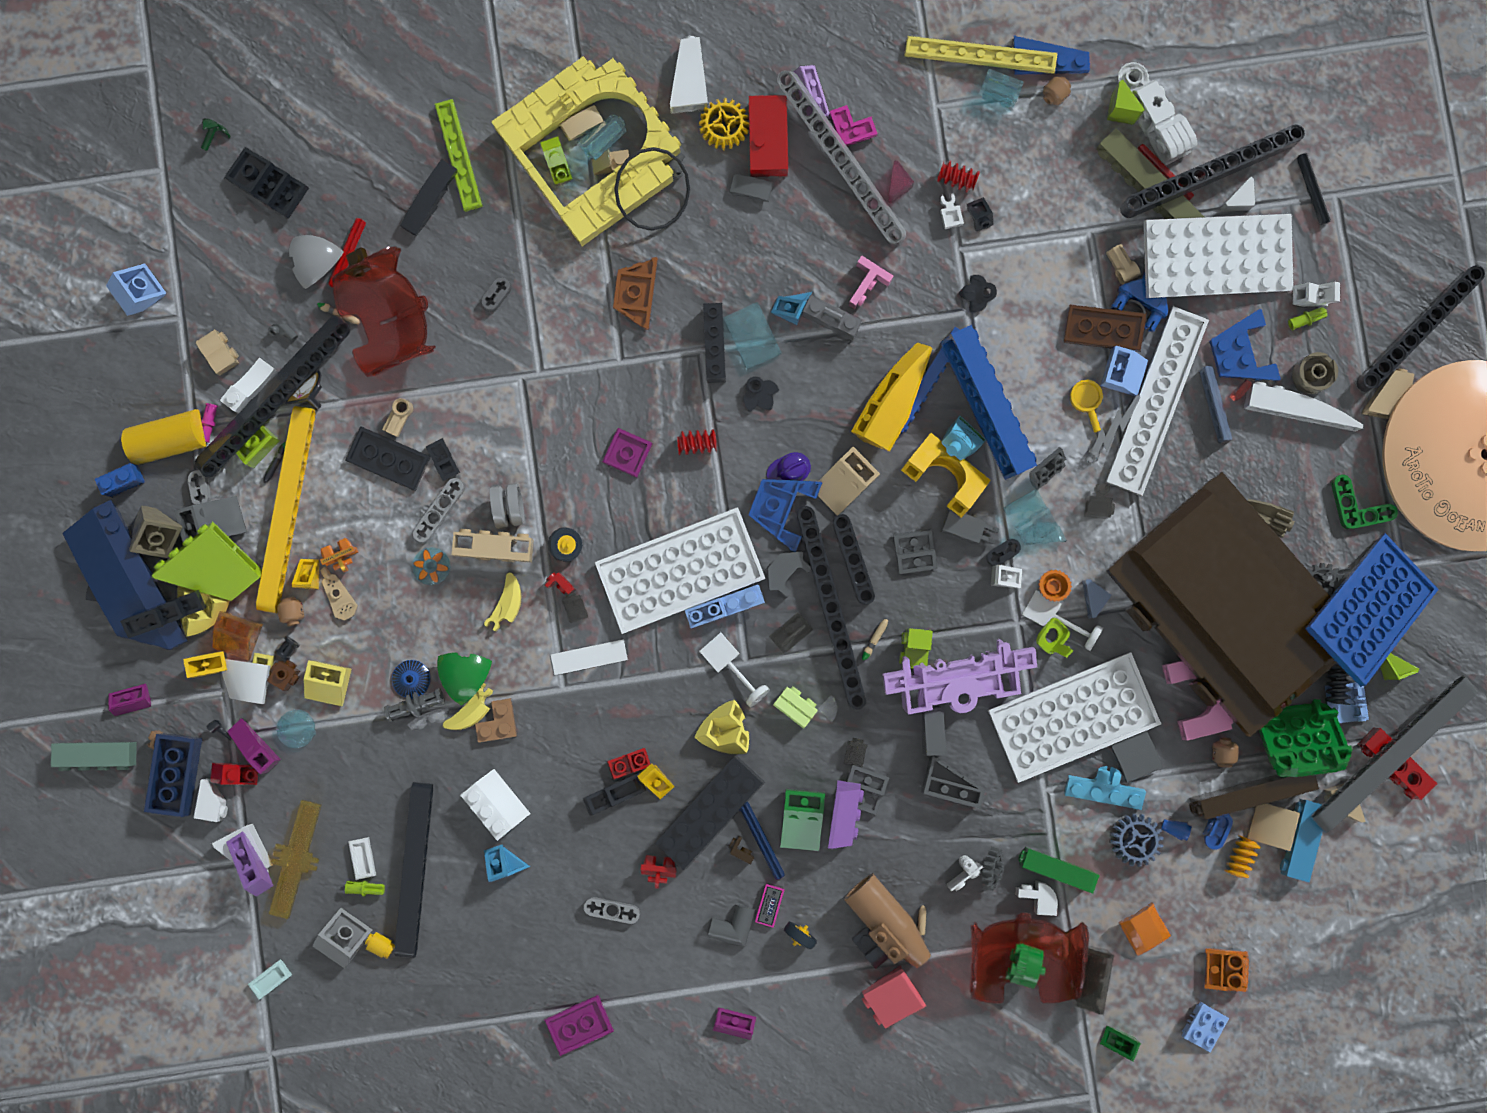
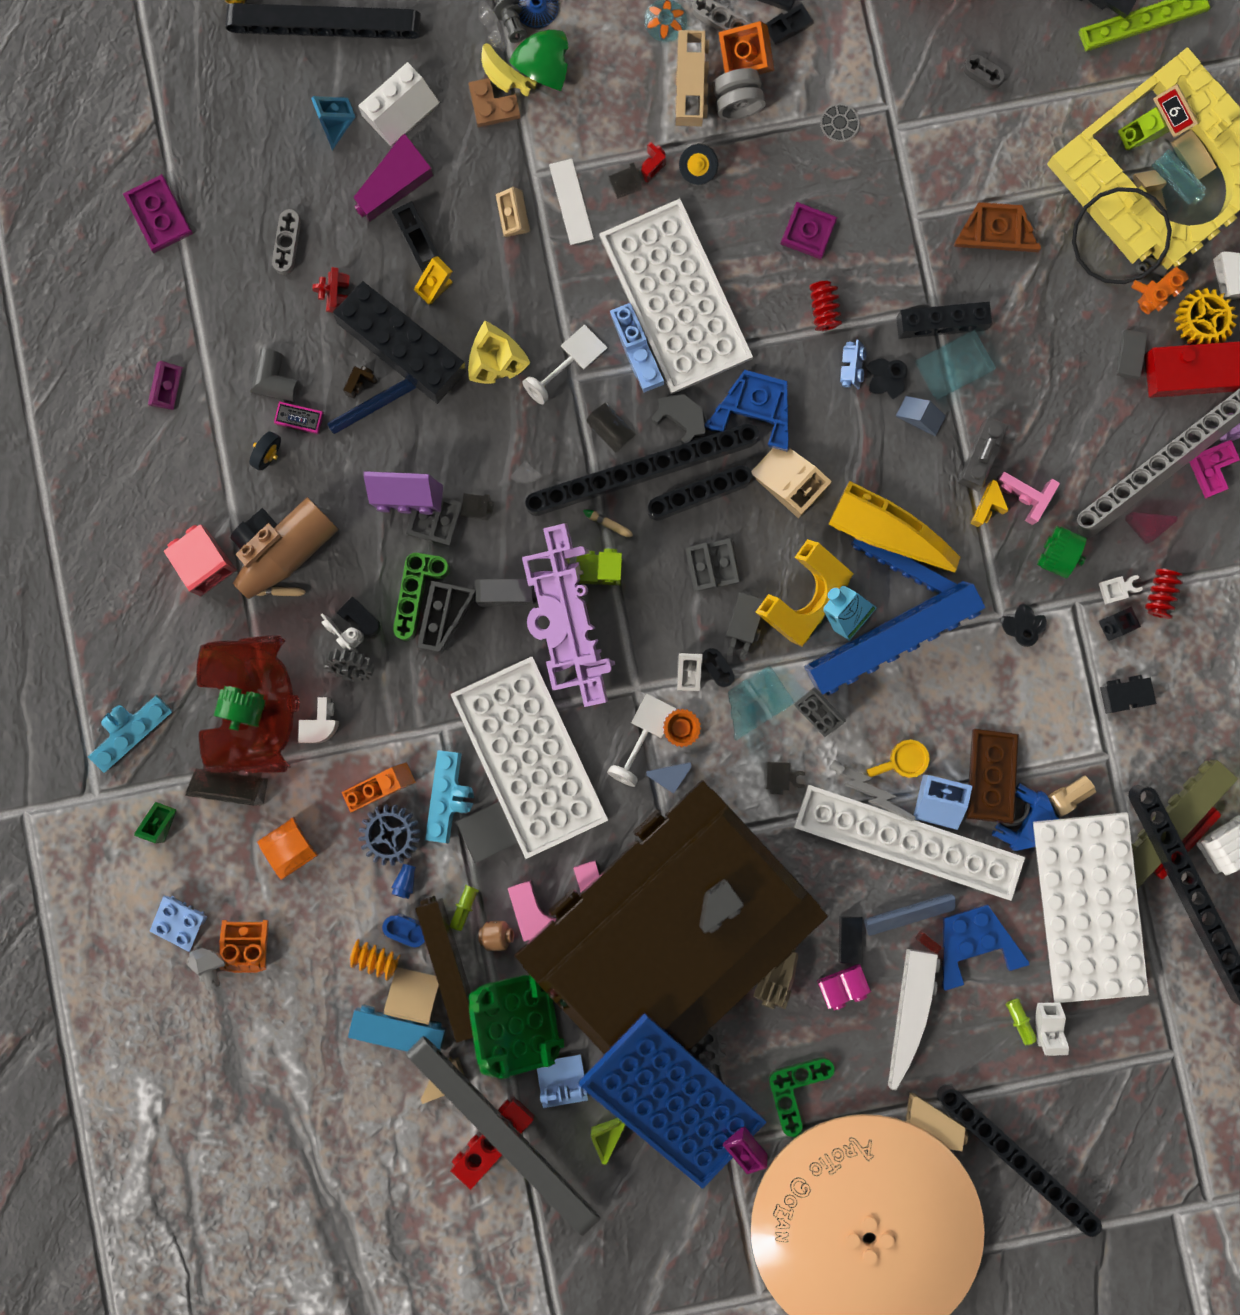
camera: 85 degrees right, 0 degrees up
(469, 497) = (747, 48): none -> orange brick
(508, 604) = (627, 107): light yellow piece -> none
(532, 420) = (839, 122): none -> sticker
(547, 135) = (1175, 110): none -> slope
(561, 812) = (392, 180): none -> magenta slope
(596, 708) = (512, 212): none -> tan slope
(628, 763) = (452, 251): red slope -> none
(701, 162) = (1155, 294): none -> orange brick
(741, 419) = (854, 373): none -> light blue hinge
(790, 467) = (803, 417): dark purple piece -> none
(791, 307) = (992, 405): dark azure slope -> none
(794, 367) = (921, 414): none -> sand blue slope
(796, 707) = (525, 434): yellowish green brick -> none
(802, 819) = (397, 447): slope -> none
(869, 314) = (992, 500): none -> yellow slope
(920, 257) = (1062, 552): none -> green piece
(933, 809) = (415, 597): none -> bright green beam
(948, 856) = (366, 621): none -> black leg
(1038, 1066) = (127, 731): none -> medium azure plate
(1039, 211) = (1119, 695): none -> black brick
(1059, 869) = (351, 743): green slope -> none
(1062, 635) = (610, 733): lime piece -> none
(1095, 846) = (378, 787): none -> orange slope
(1200, 779) = (463, 908): none -> lime axle
(1217, 561) = (718, 905): none -> dark grey slope
(1236, 455) = (850, 939): none -> black slope
(1243, 198) = (1162, 936): white slope -> none
(1244, 1002) = (204, 964): none -> light grey connector
(1275, 462) = (843, 987): none -> dark pink brick
(1313, 189) = (1181, 1025): black axle -> none
(1317, 363) = (964, 1039): dark tan brick -> none
(1338, 685) = (575, 1067): black piece -> none
(1409, 550) = (746, 1151): none -> magenta slope

